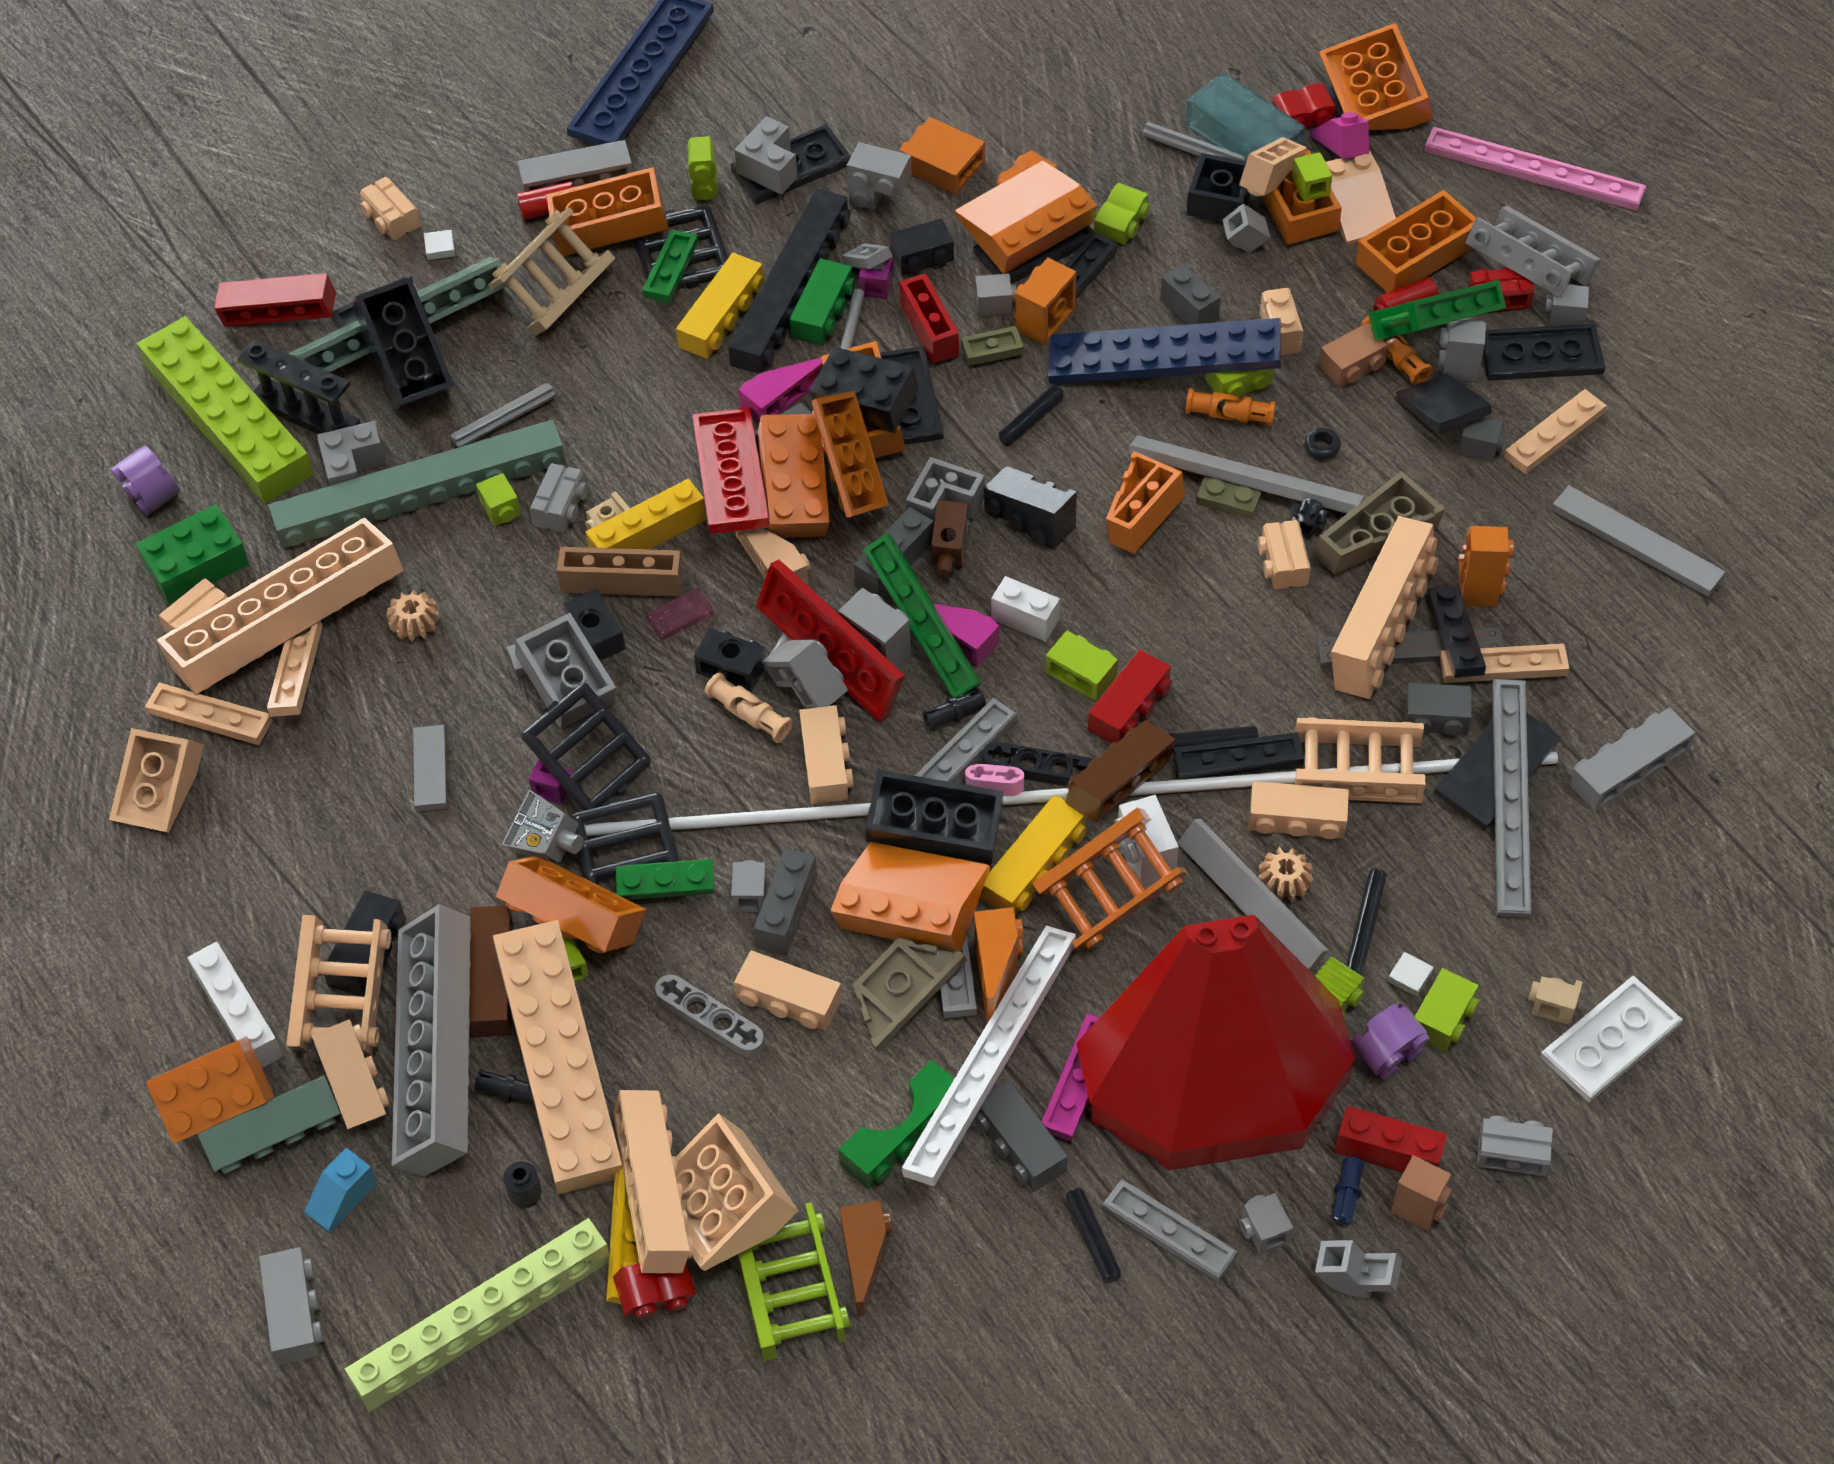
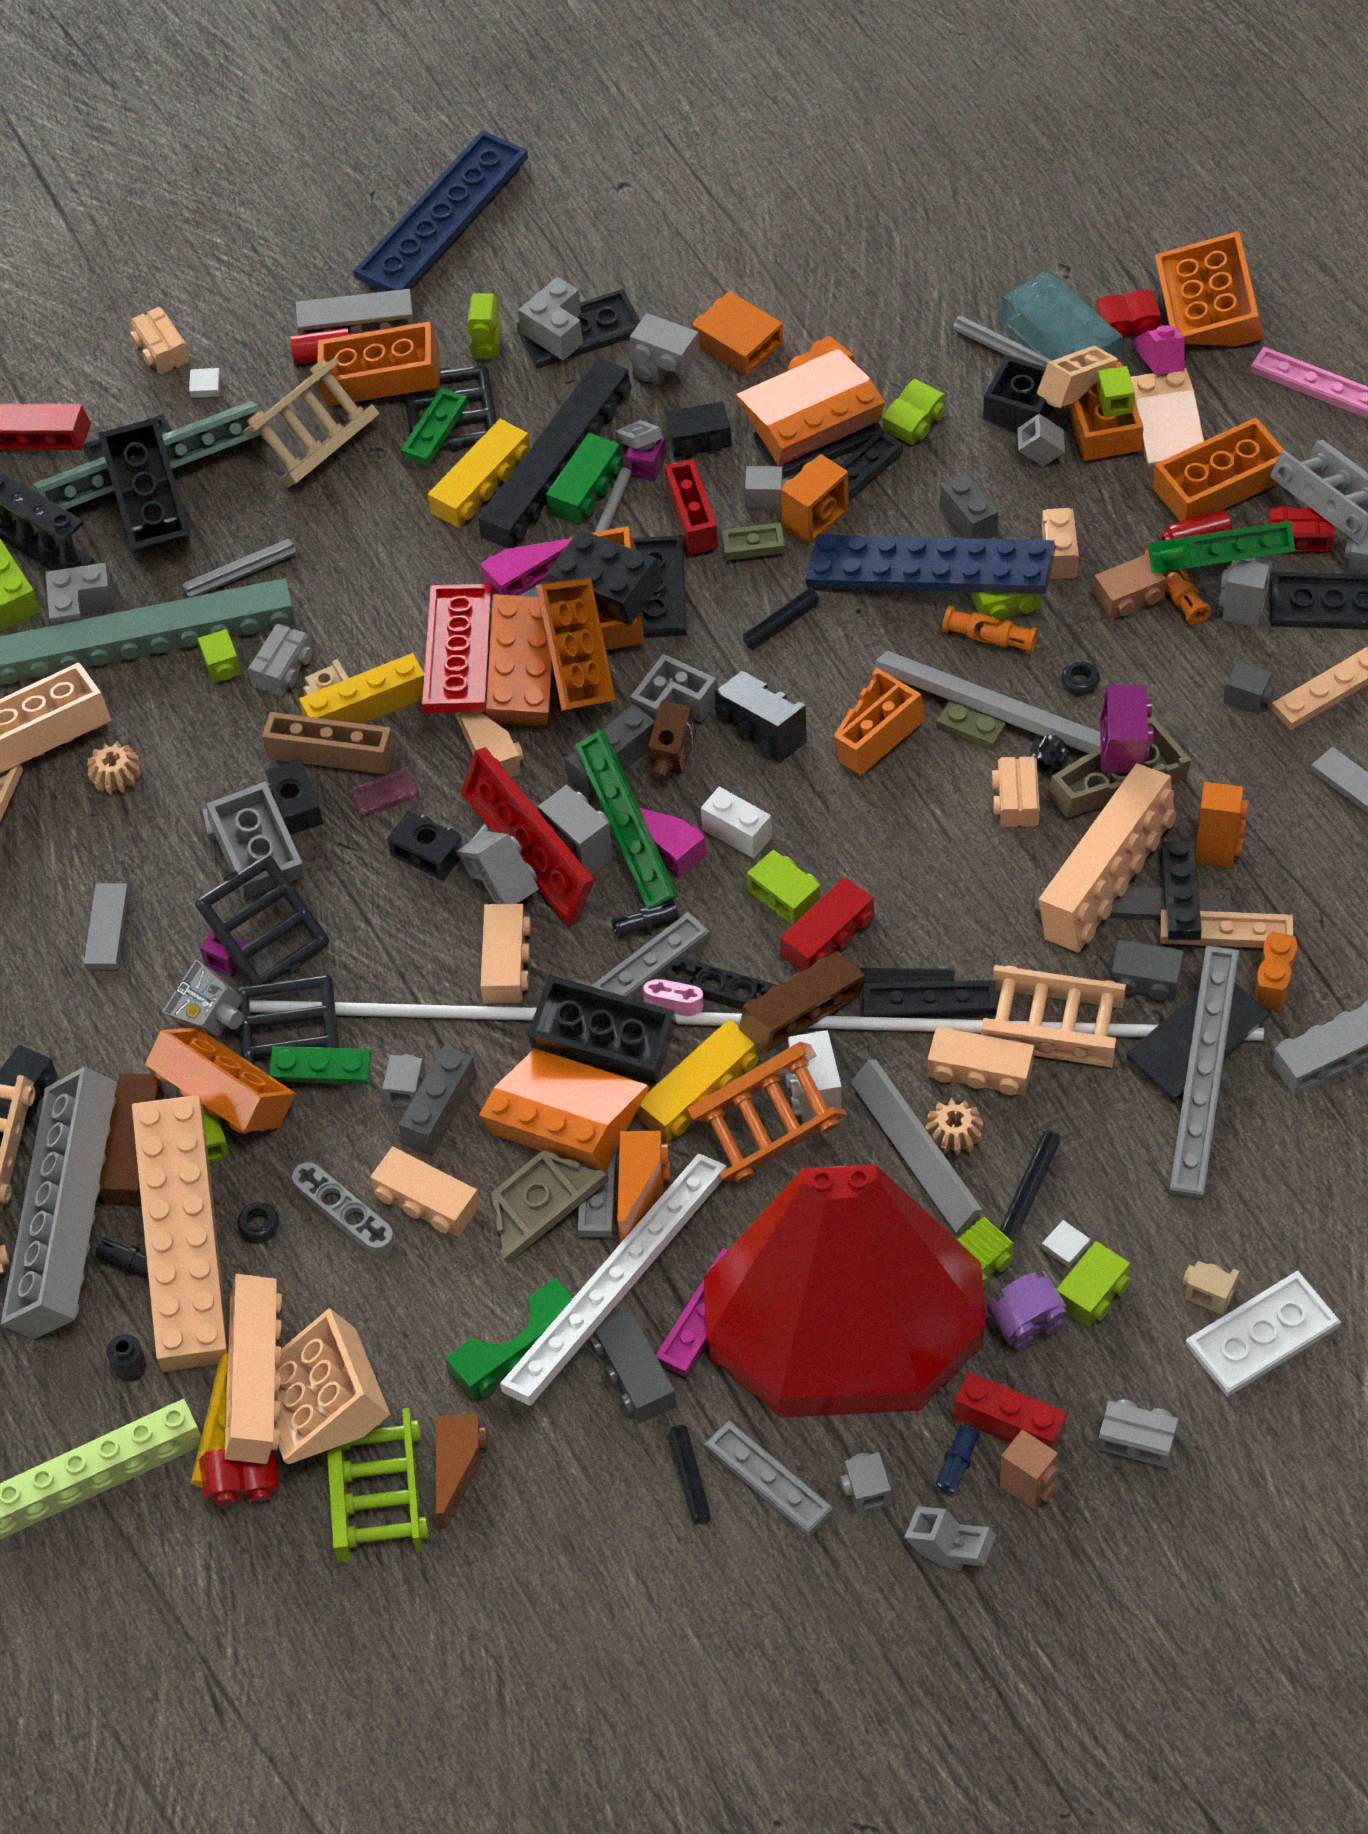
camera: 10 degrees right, 0 degrees up
(632, 1048) = (255, 1210): none -> black piece
(748, 707) = (436, 897): light nougat piece -> none
(1383, 484) = (1124, 728): none -> magenta brick
(1444, 402) = (1214, 646): black tile -> none
(1559, 696) = (1275, 971): none -> orange brick

